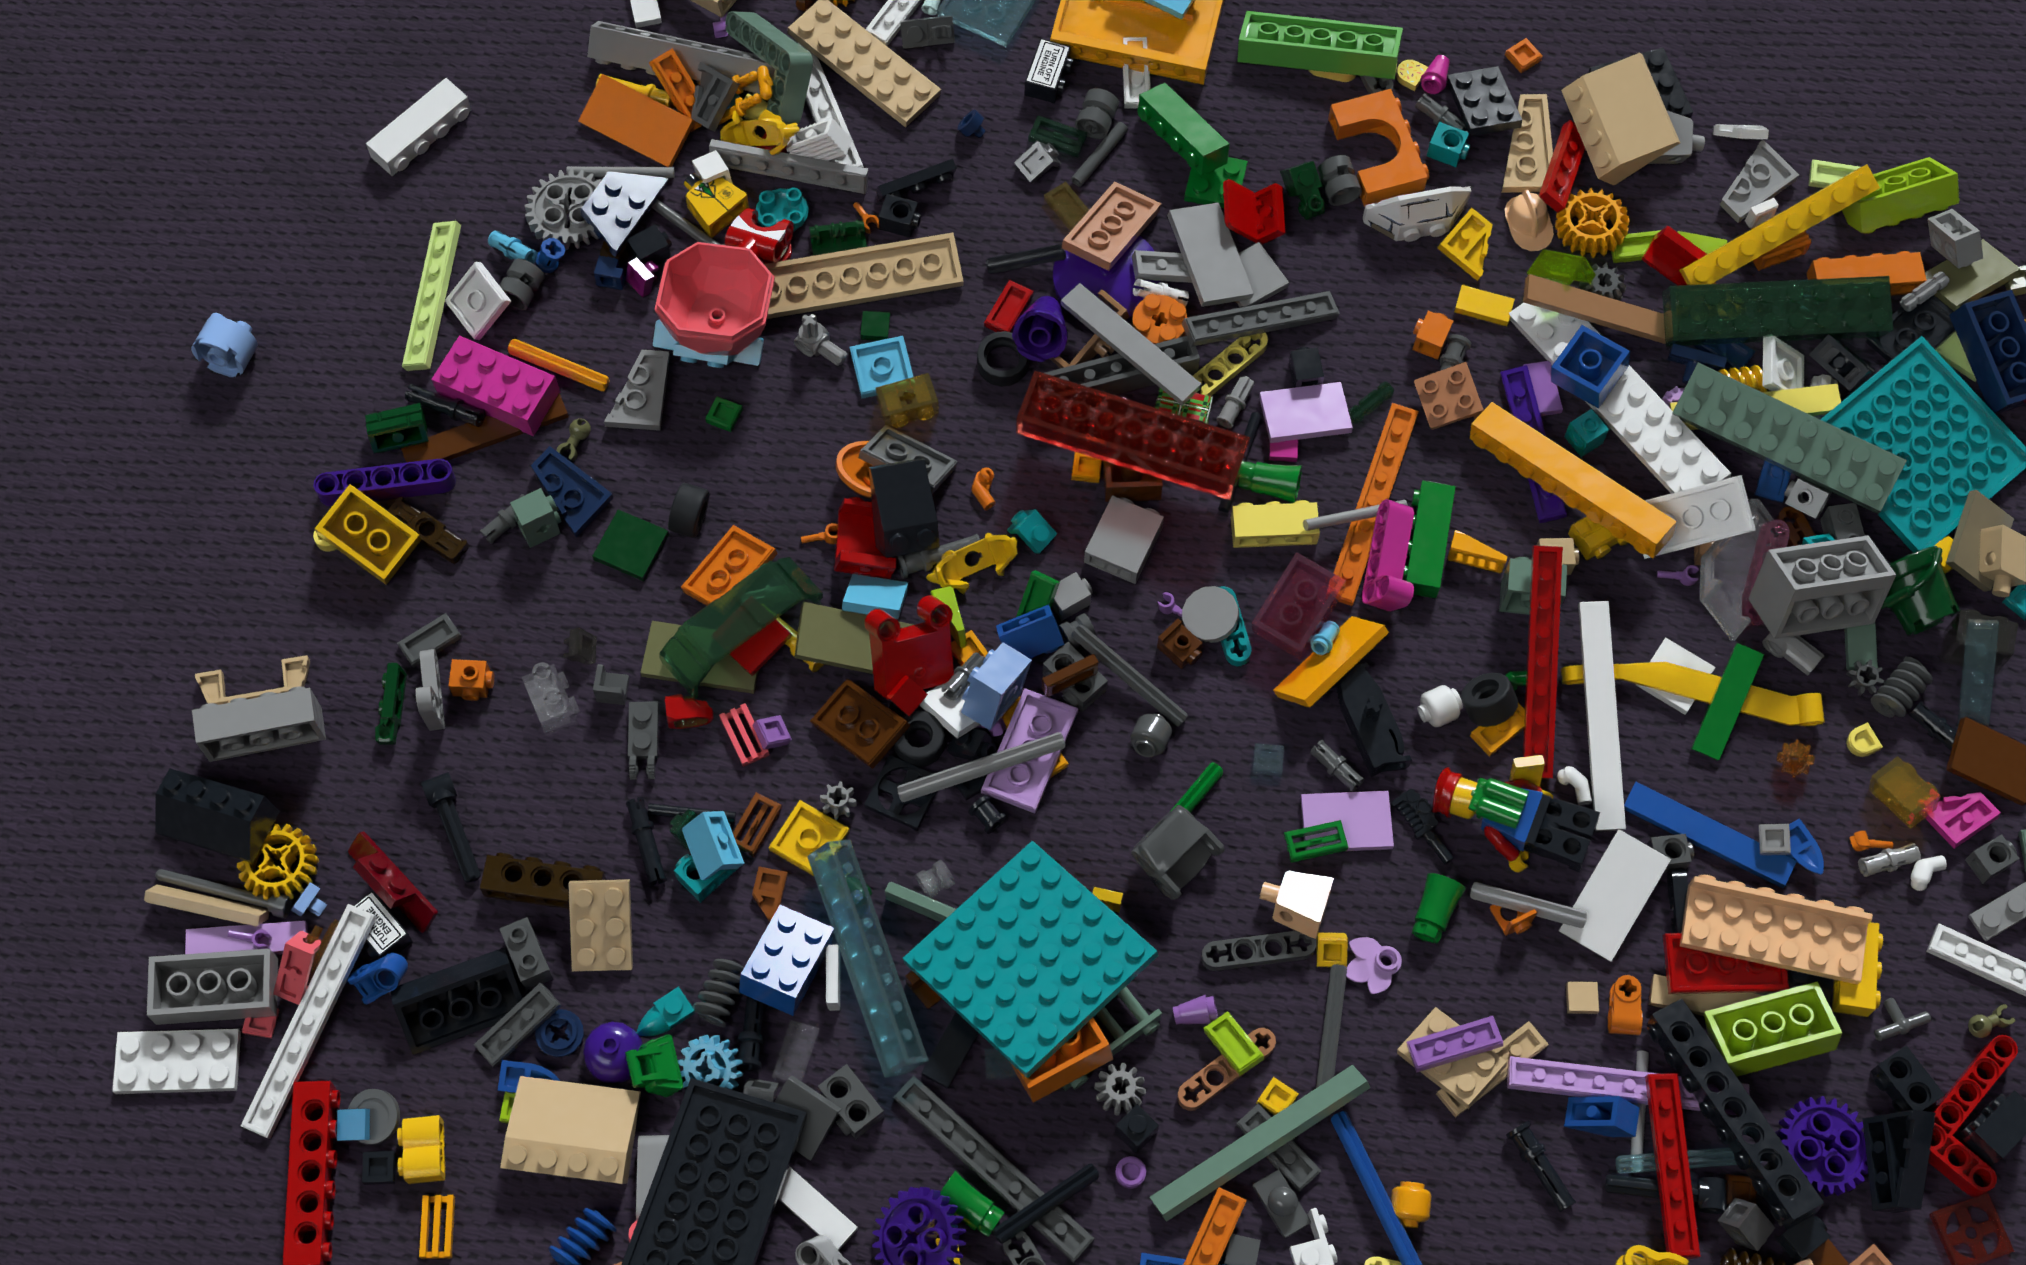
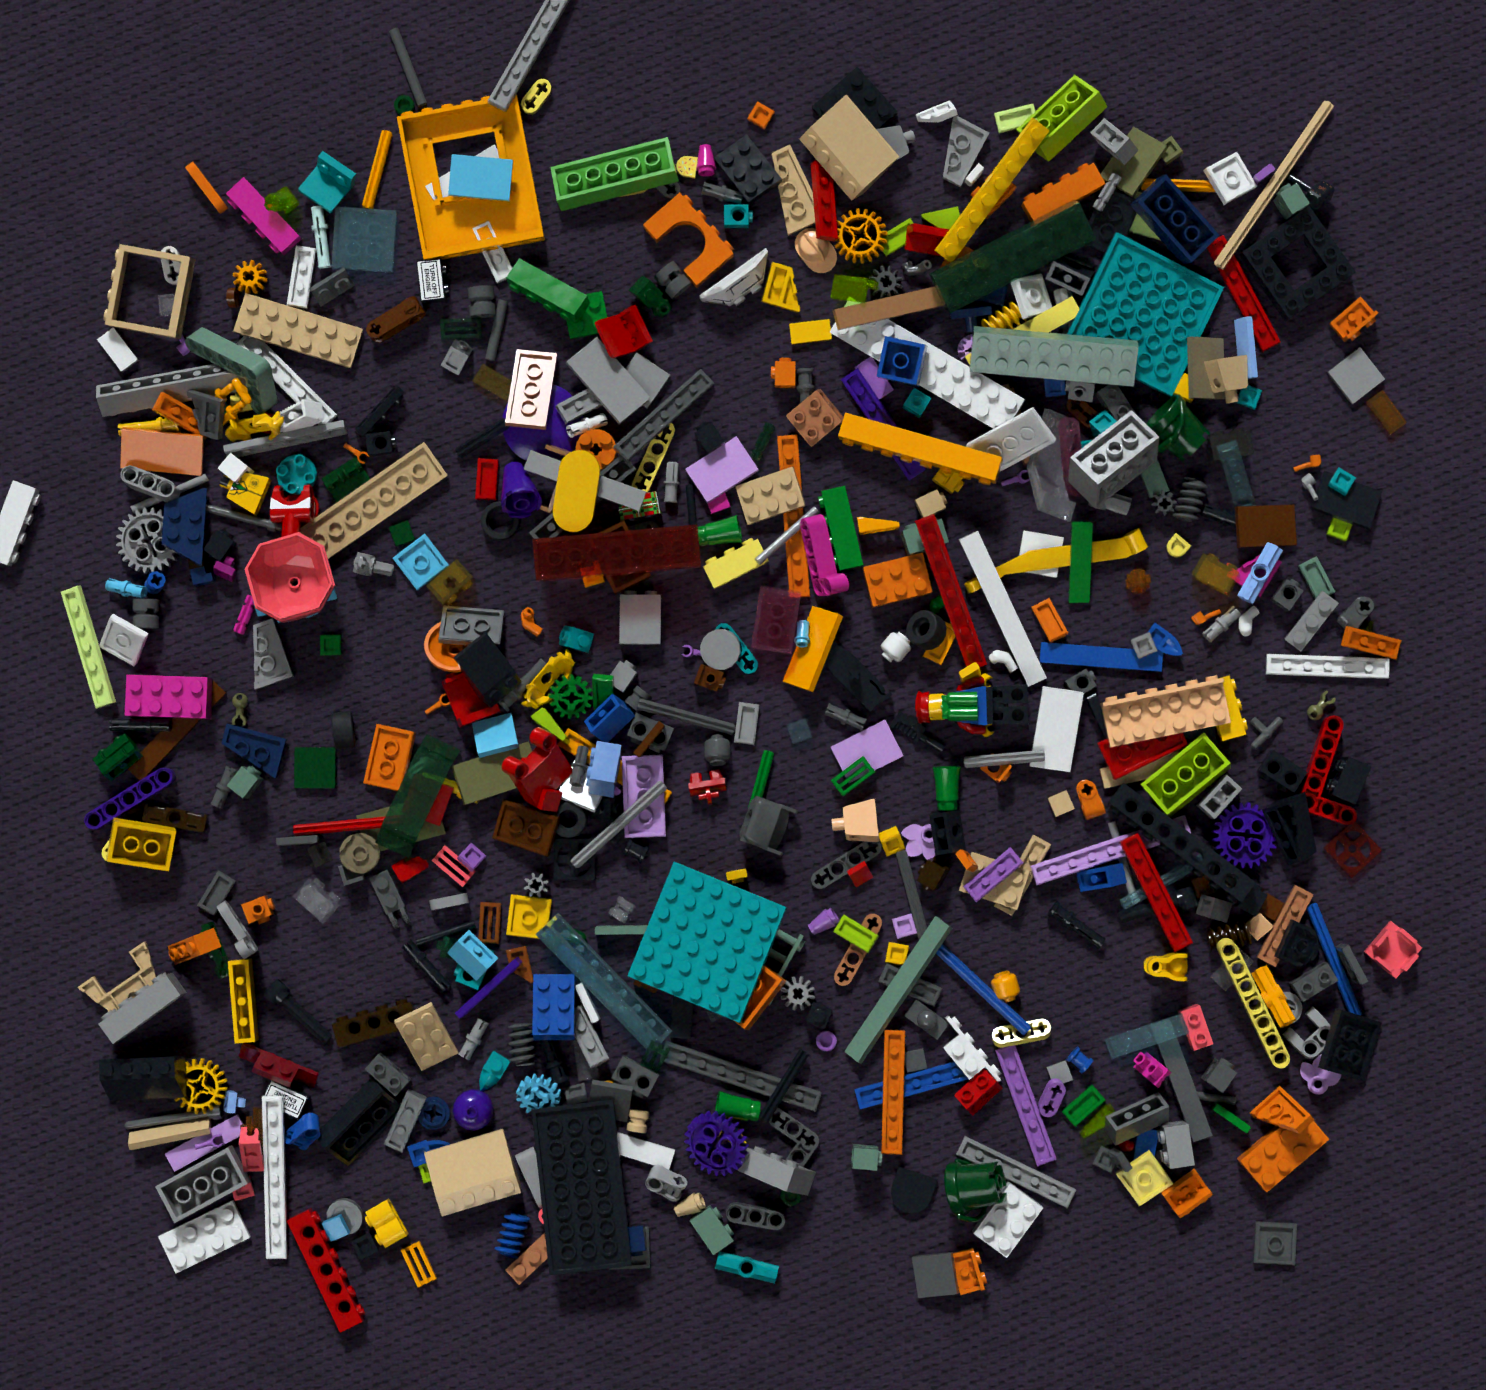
camera: 25 degrees left, 20 degrees up
(366, 681) = (193, 946): none -> orange slope
(390, 778) = (243, 1001): none -> yellow brick
(558, 365) = (201, 659): light orange axle -> none
(562, 617) = (297, 840): none -> dark grey tile
(602, 146) = (141, 480): none -> light grey beam
(618, 621) = (338, 826): none -> red axle
(633, 665) = (360, 853): none -> dark tan tile
(636, 338) = (245, 615): none -> dark pink axle
(655, 1067) = (506, 1109): green piece -> none
(660, 960) = (473, 1039): none -> light grey pin
(713, 900) = (489, 987): none -> dark purple tile
(716, 773) = (448, 901): none -> light grey beam
(811, 1026) = (588, 1039): none -> light grey tile
(828, 1160) = (638, 1120): none -> tan wheel
(899, 1072) = (658, 1050): none -> clear green tile
(972, 124) = (397, 348): dark blue tile -> none
(980, 586) = (578, 696): none -> green gear
(984, 93) = (396, 320): none -> reddish brown piece
(1115, 345) = (576, 490): none -> yellow tile
(1118, 774) = (709, 788): none -> red hips
(1203, 721) = (746, 723): none -> light grey tile
(1272, 970) = (860, 874): none -> red tile
(1302, 1066) = (904, 926): none -> lavender tile
(1354, 465) = (770, 495): none -> tan plate
(1371, 1011) = (933, 874): none -> dark brown brick
(1413, 964) = (947, 832): none -> black brick
(1426, 1009) = (966, 860): none -> orange tile
(1475, 627) = (897, 580): none -> orange brick
(1647, 289) = (918, 269): none -> flat silver arm
(1657, 760) = (1049, 620): none -> orange tile
(1807, 1077) = (1219, 797): none -> light grey brick
(1956, 820) = (1253, 584): none -> light blue piece

